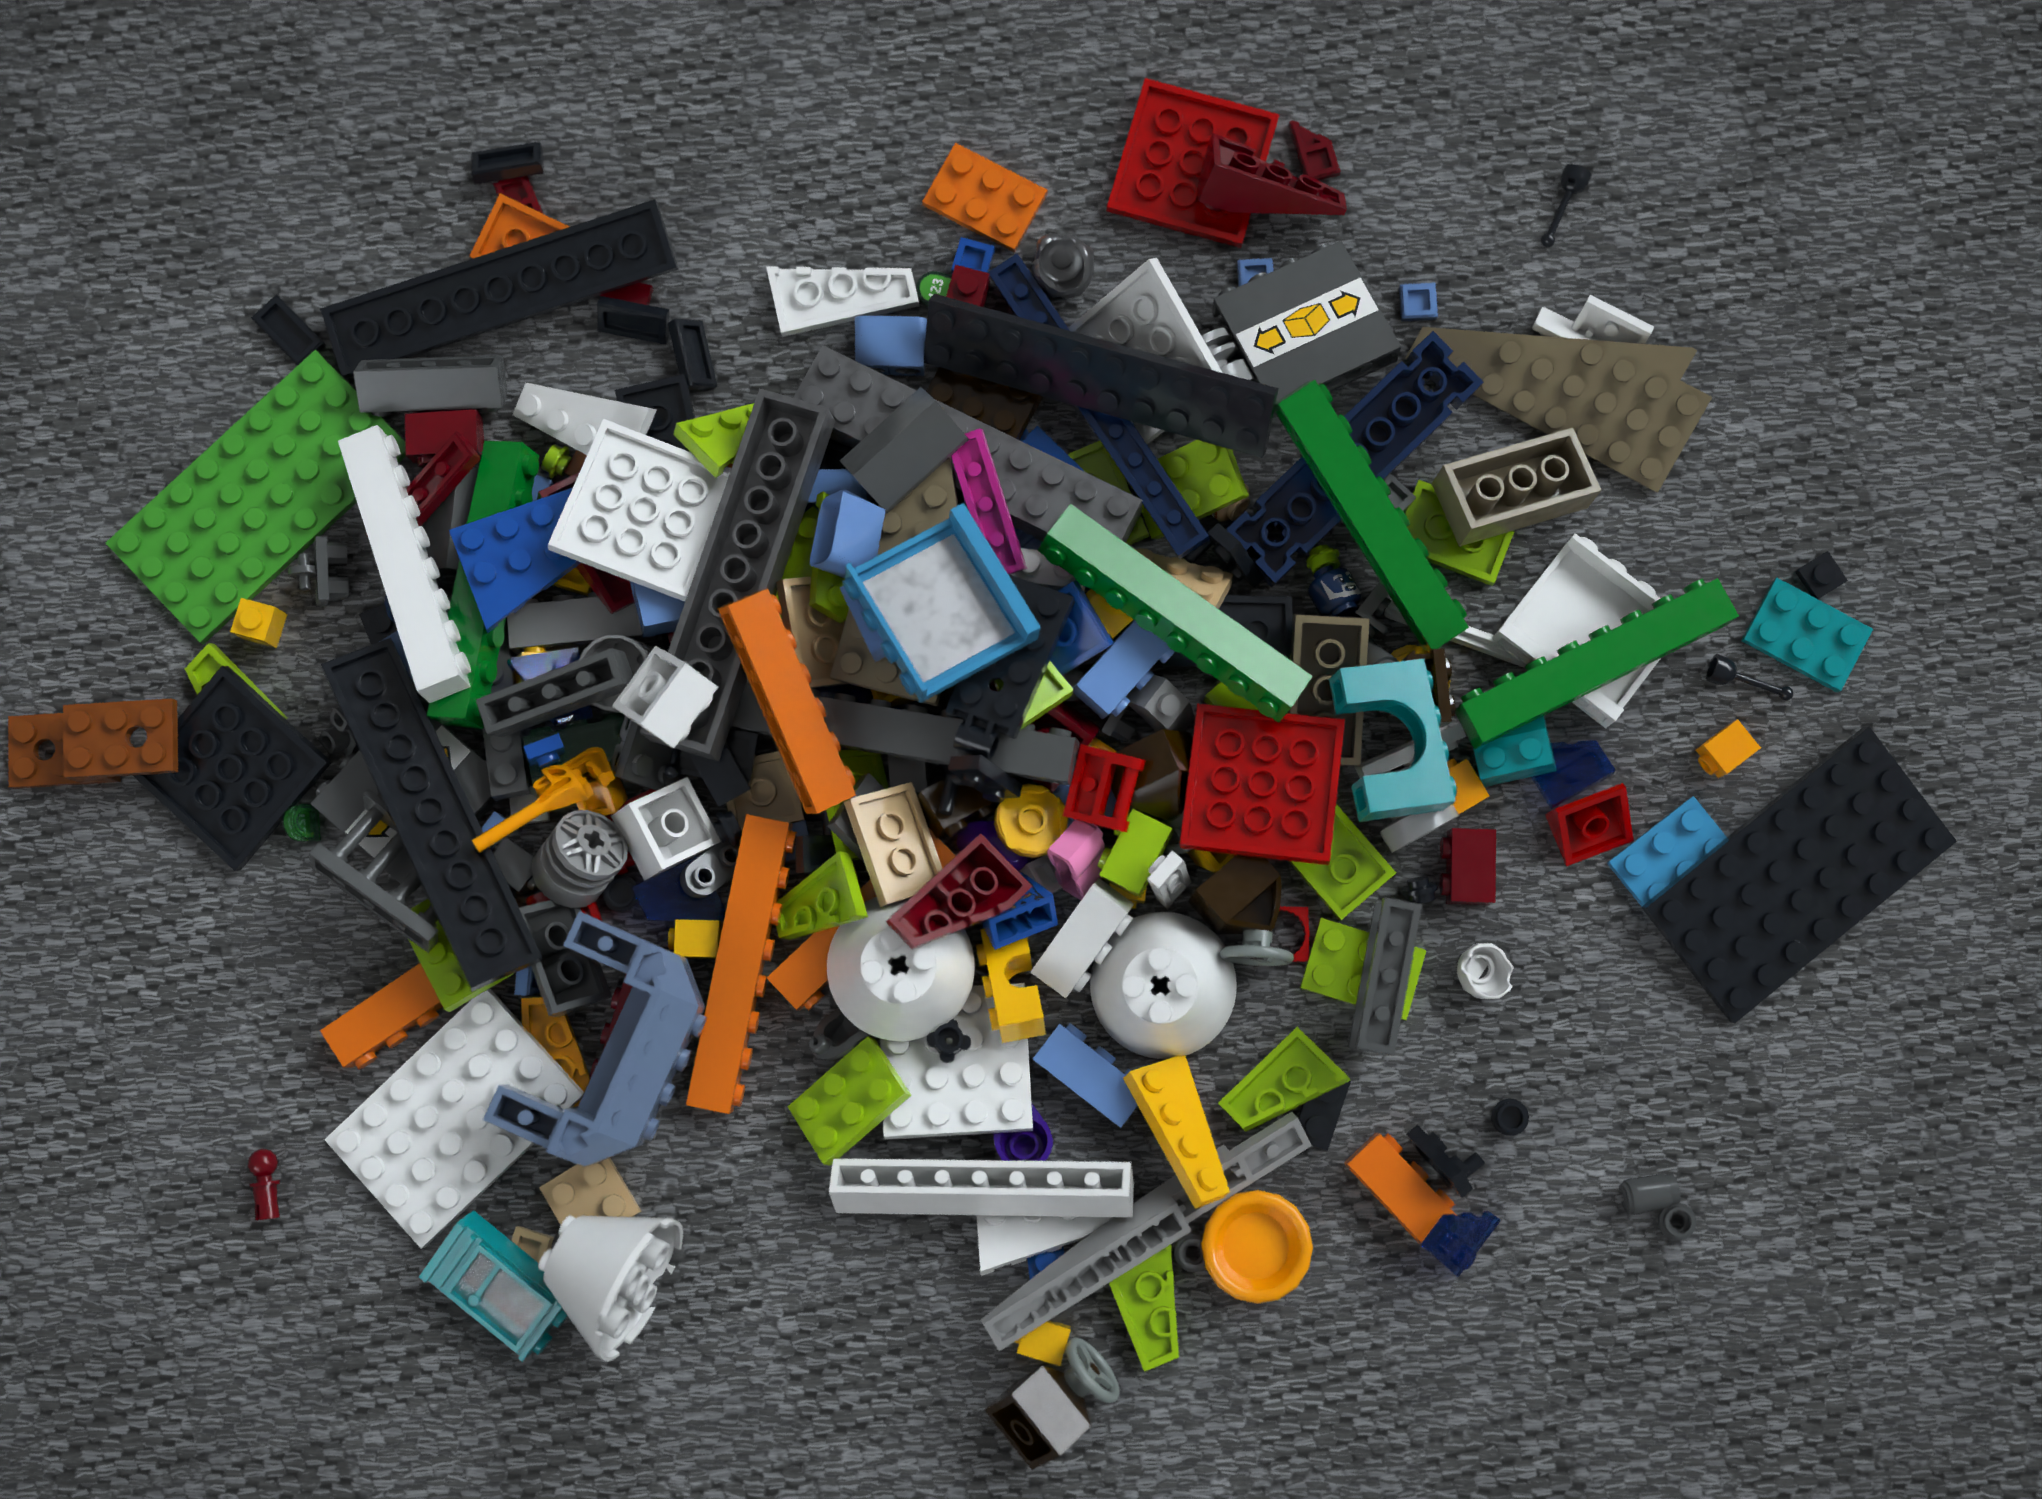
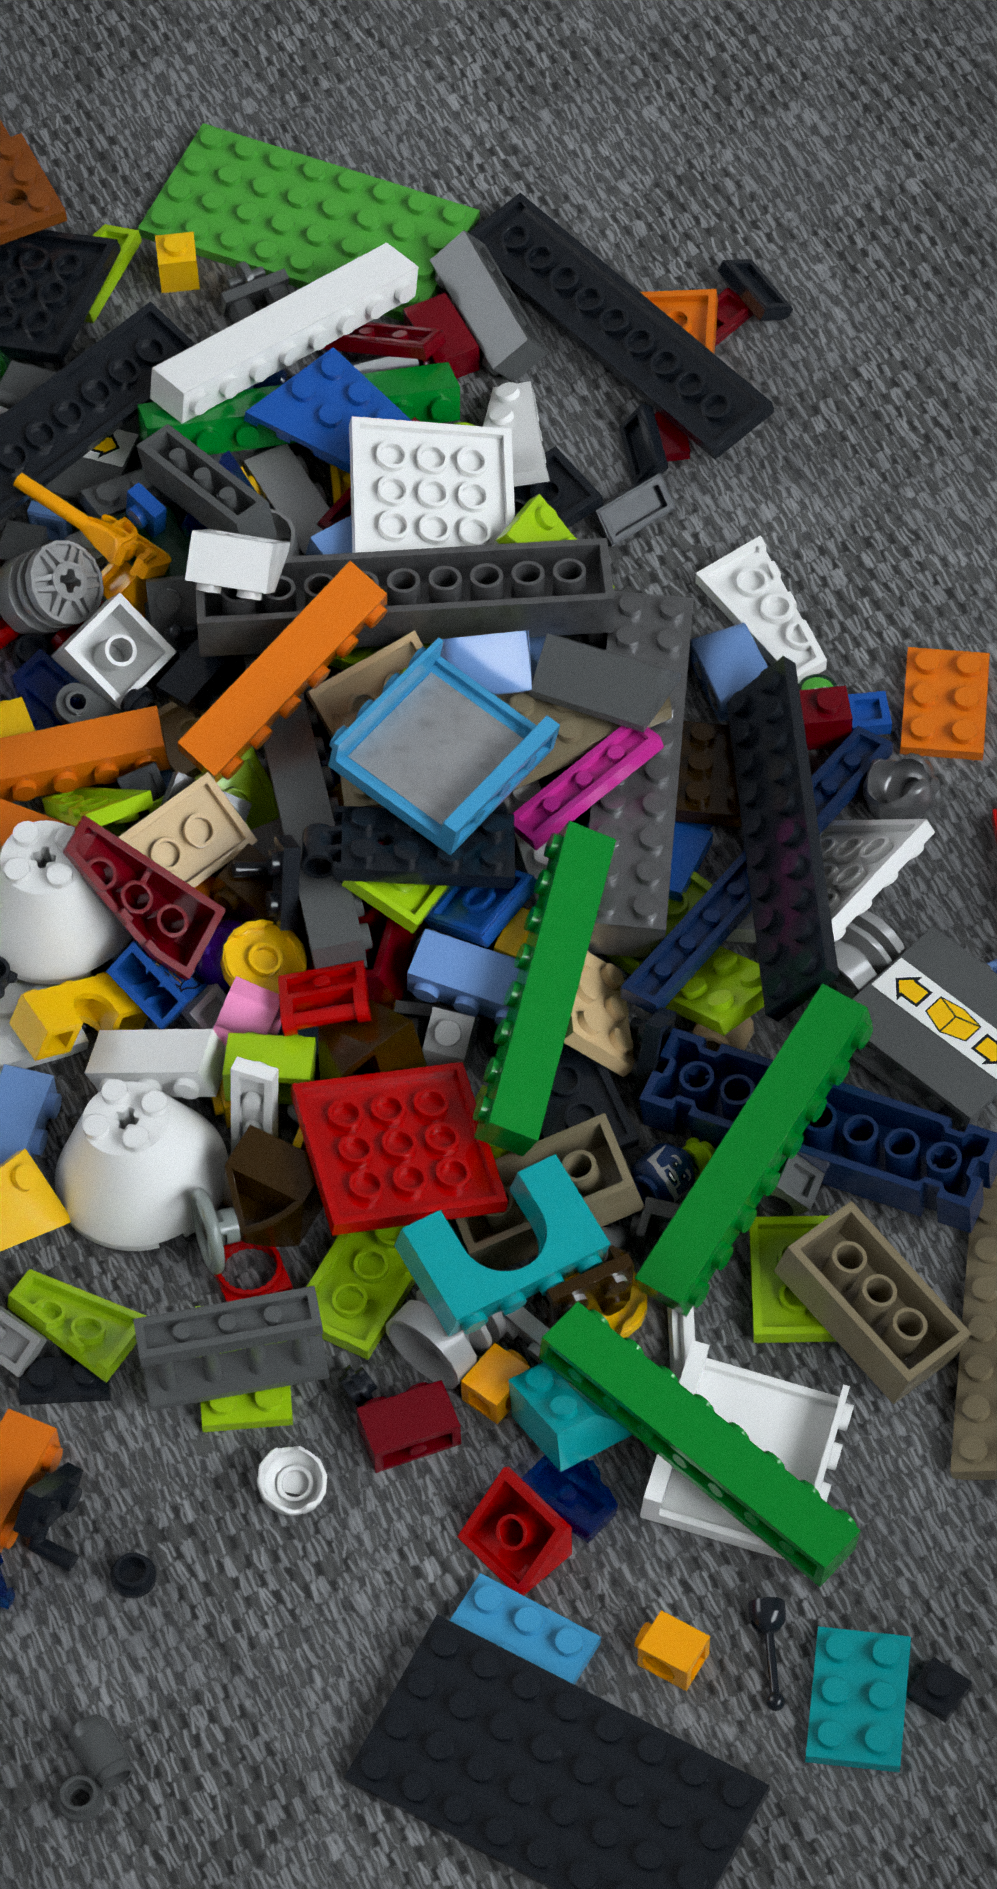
camera: 65 degrees right, 25 degrees down
(287, 330) = (490, 183): black tile -> none

